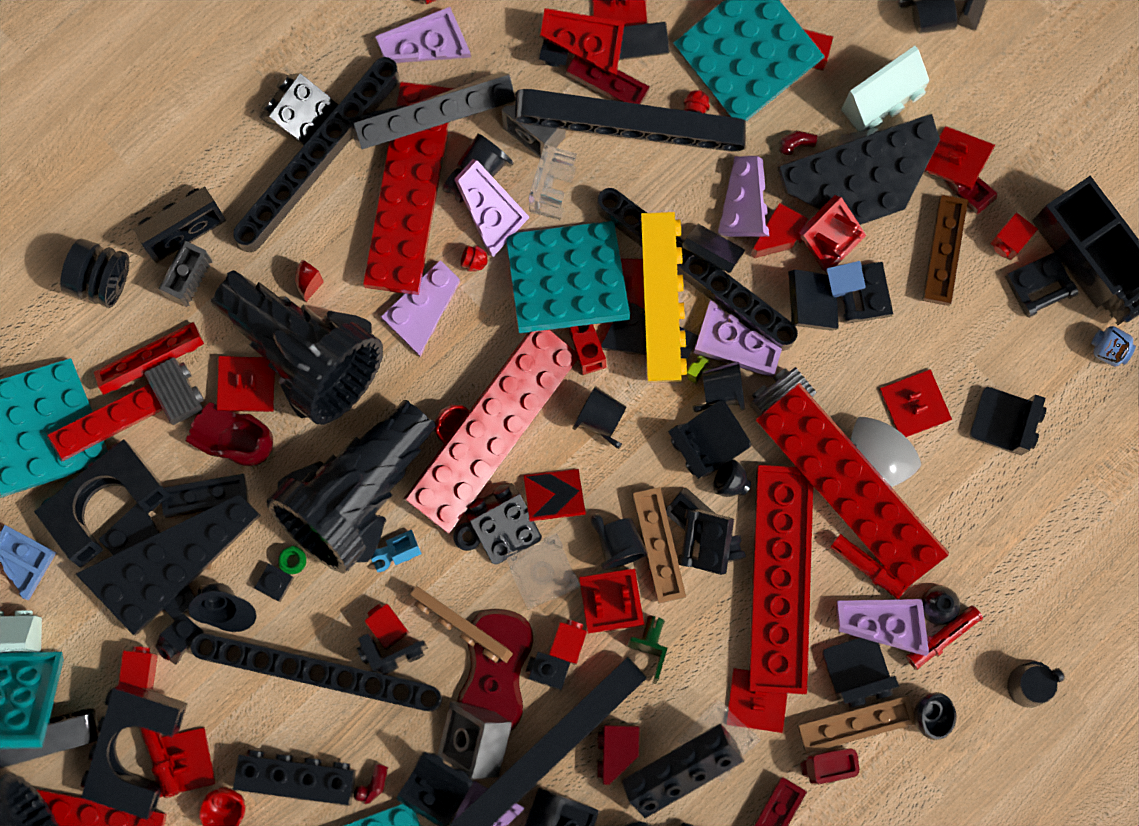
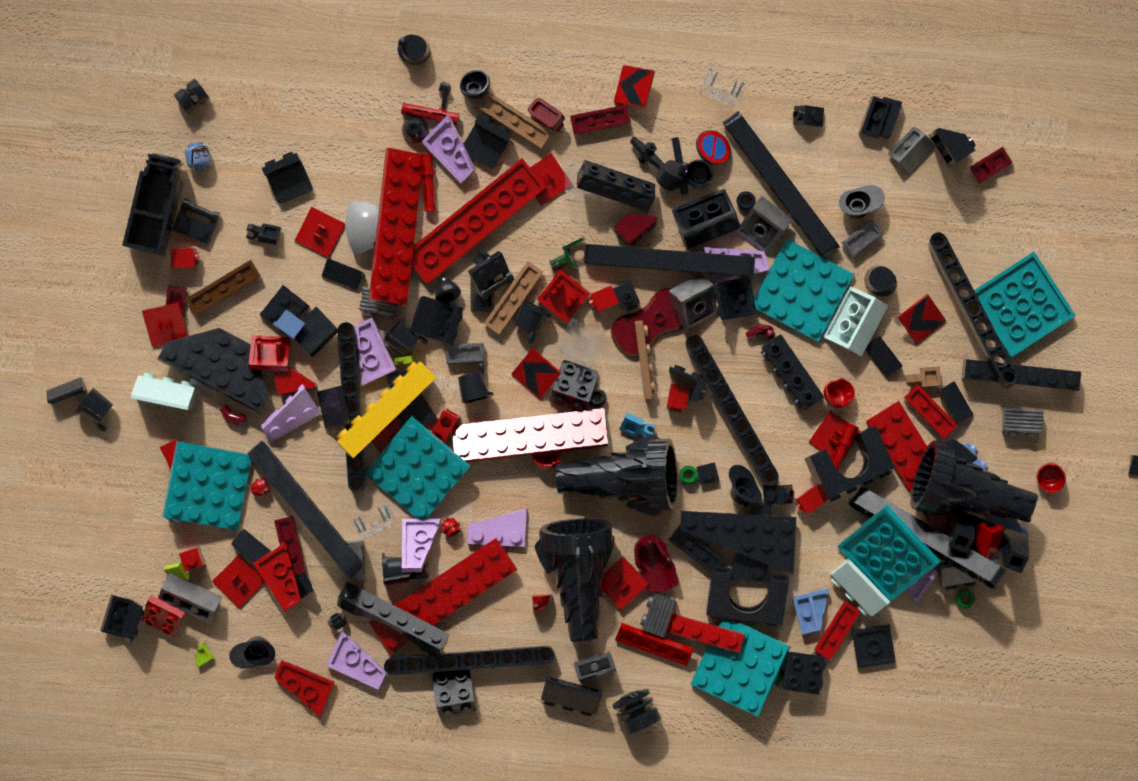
camera: 125 degrees left, 10 degrees up
(485, 58) = (337, 621): none -> black plate
(645, 438) = (465, 353): none -> flat silver plate
(849, 387) = (342, 273): none -> black slope
(957, 680) = (445, 88): none -> black hand
(964, 343) = (266, 234): none -> black plate

